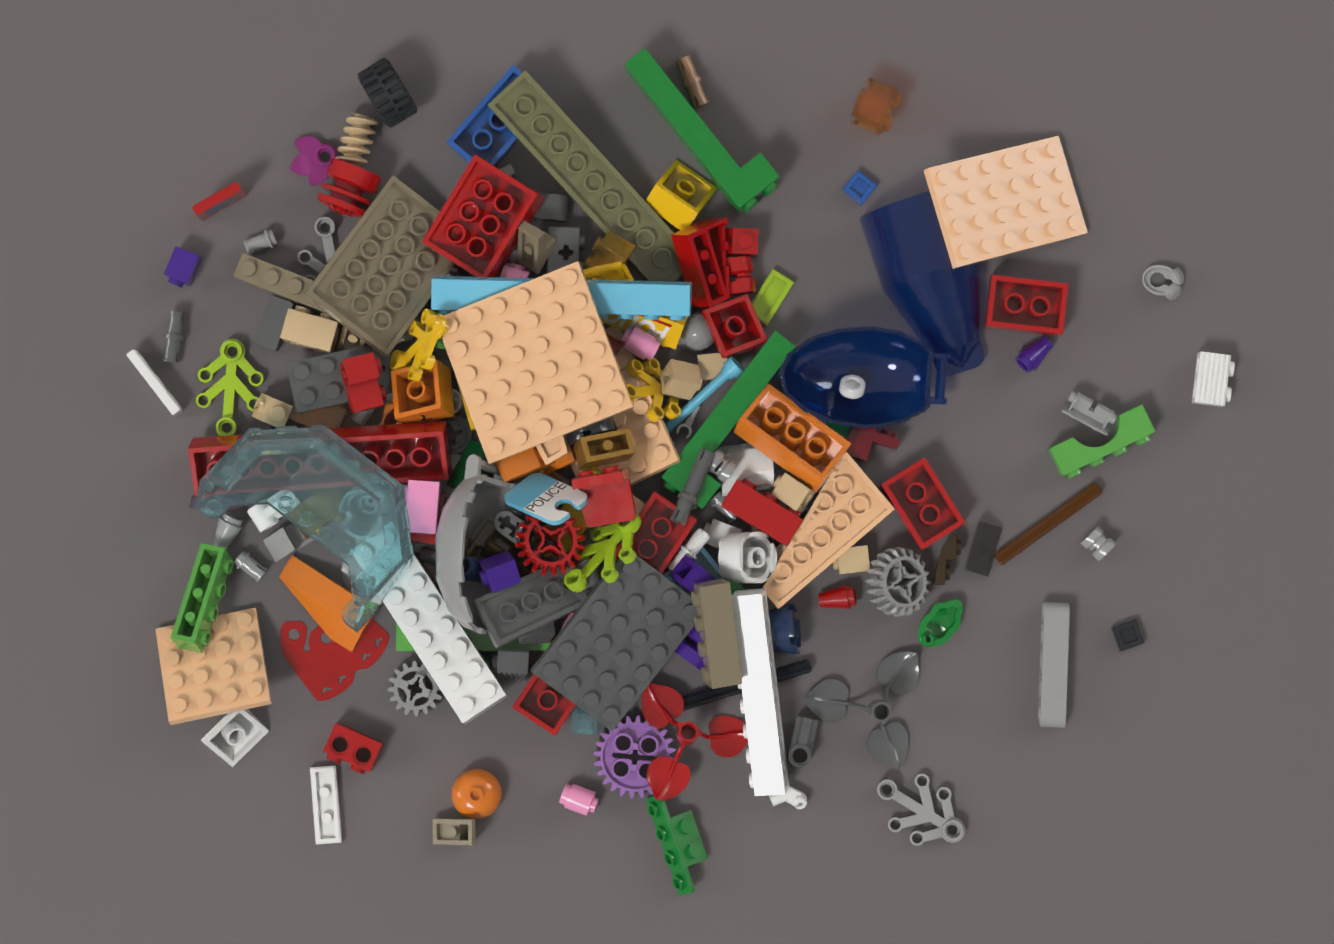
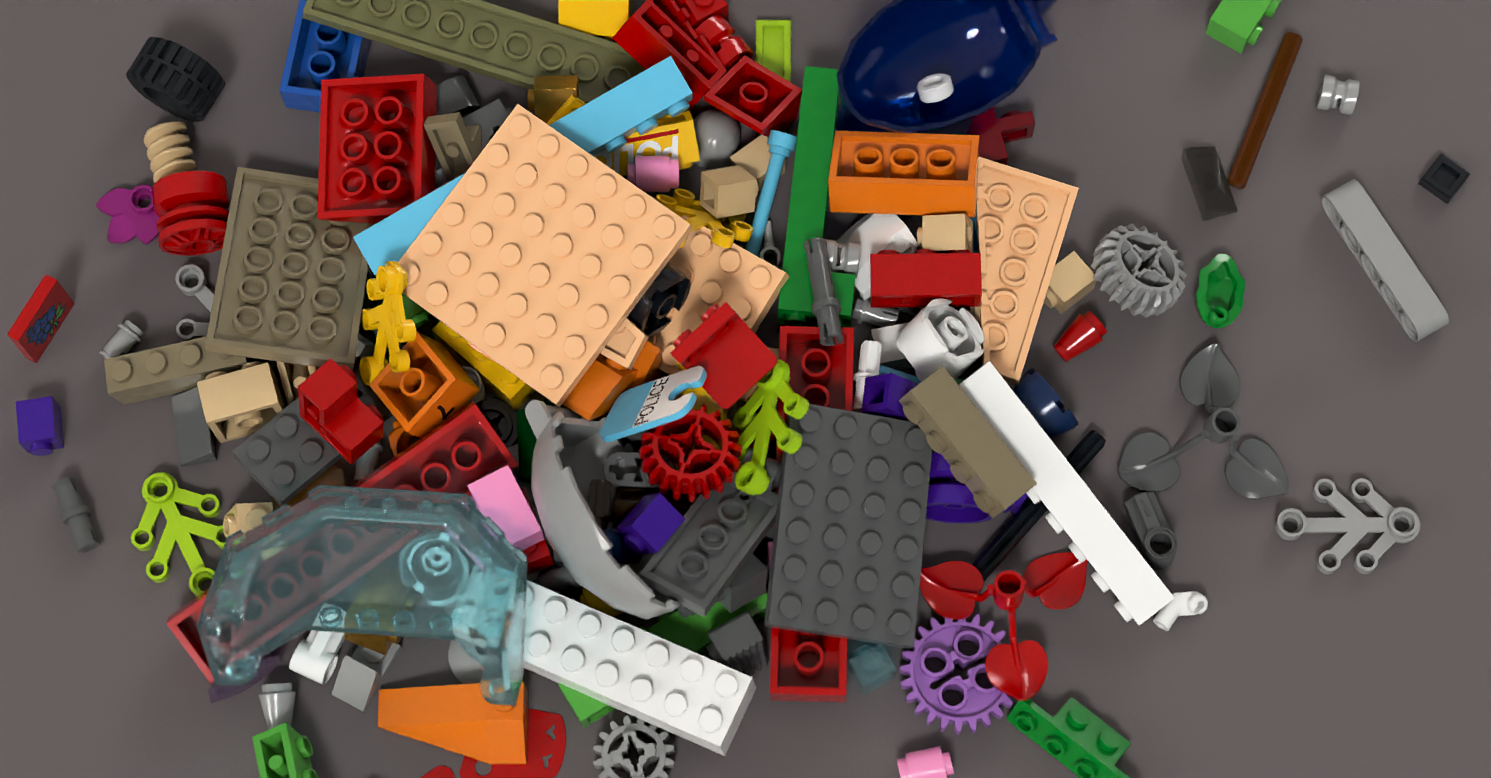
camera: 25 degrees left, 15 degrees down
(154, 382) = (82, 582): white tile -> none
(250, 566) = (333, 734): light grey pin -> none
(604, 449) = (684, 304): pearl gold brick -> none
(922, 504) = (1108, 166): red brick -> none
(949, 550) = (1173, 208): dark brown slope -> none

